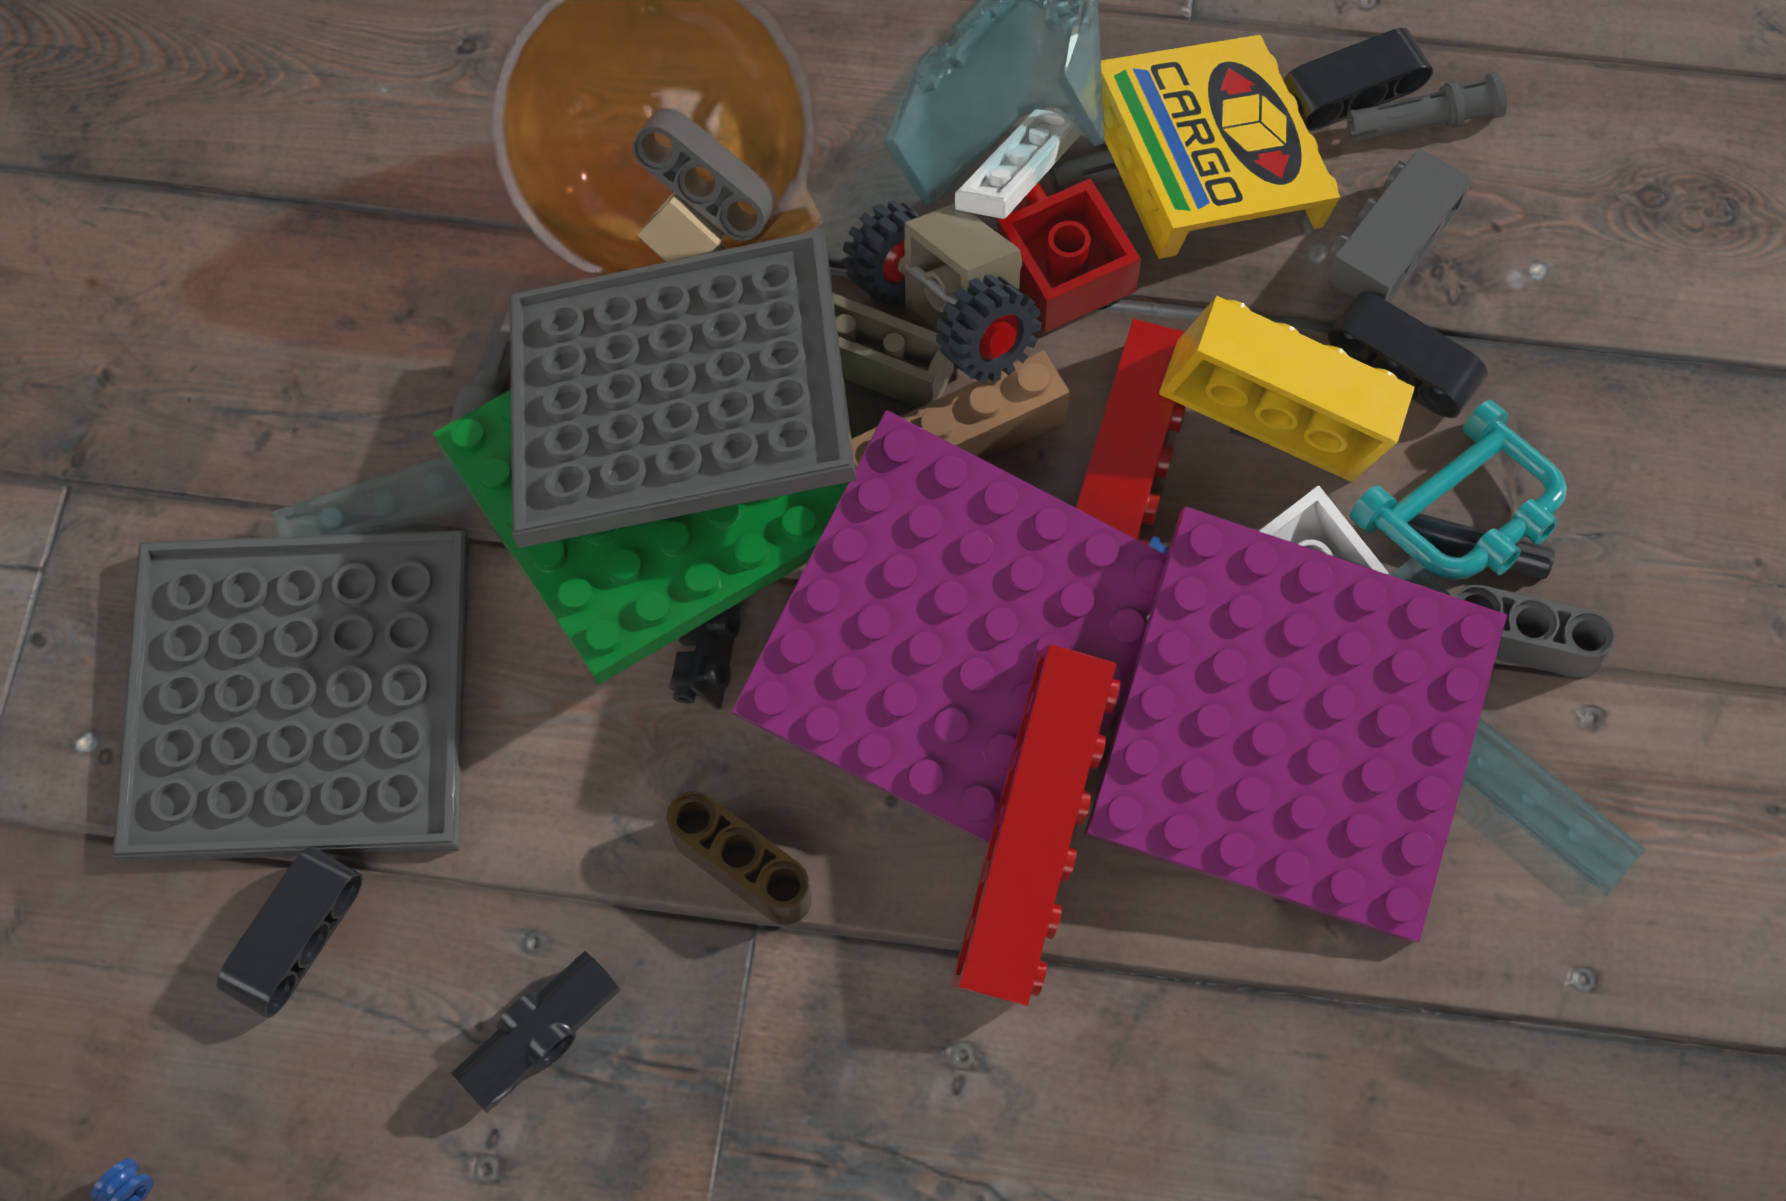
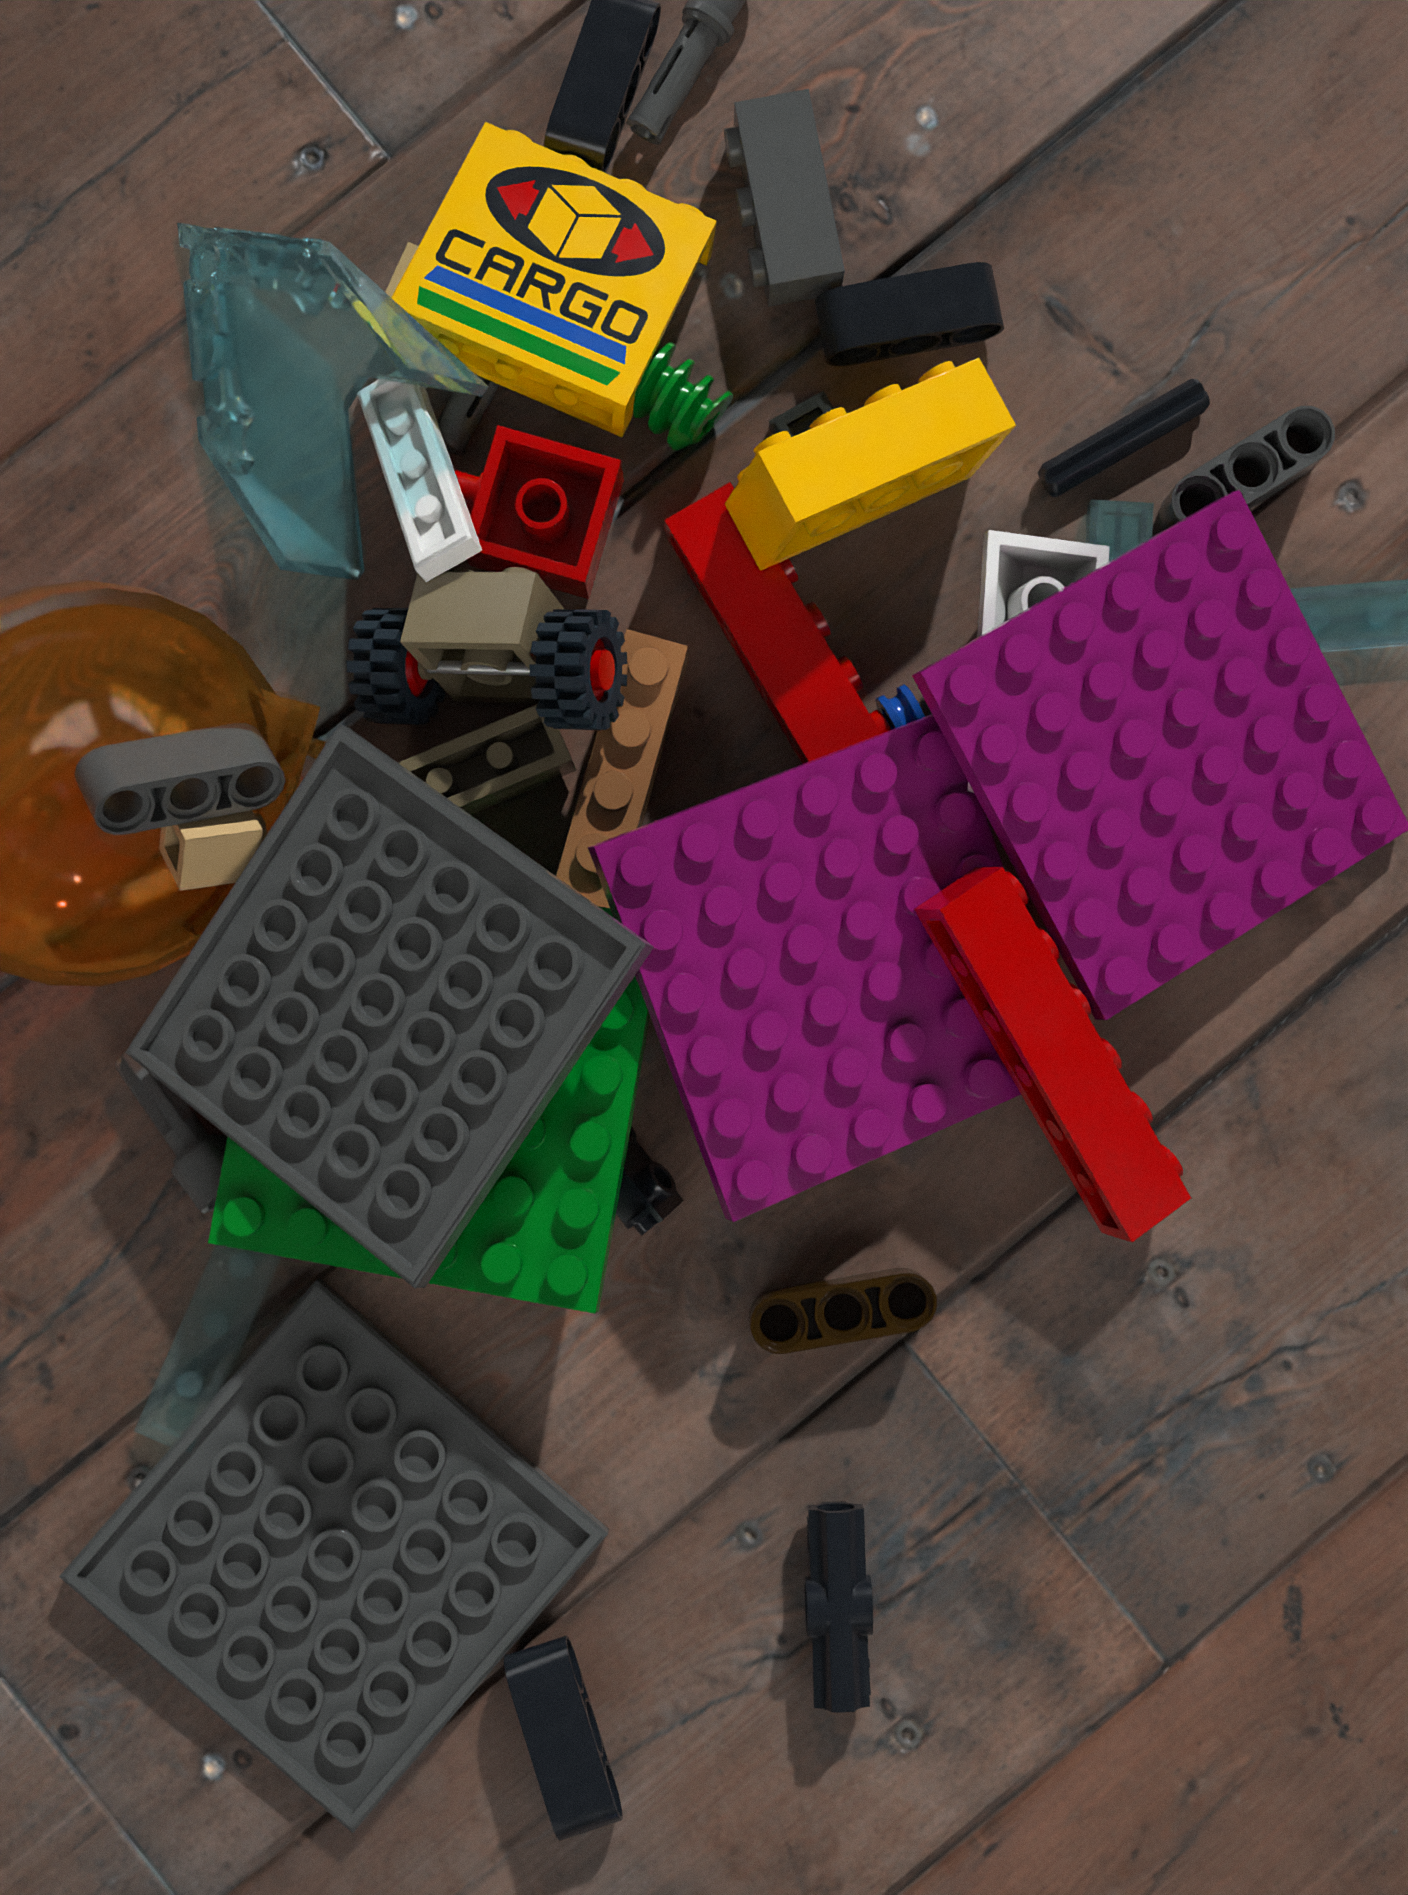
camera: 50 degrees left, 20 degrees up
(1213, 265) = (677, 402): none -> green piece
(1496, 547) = (1162, 429): teal bar -> none

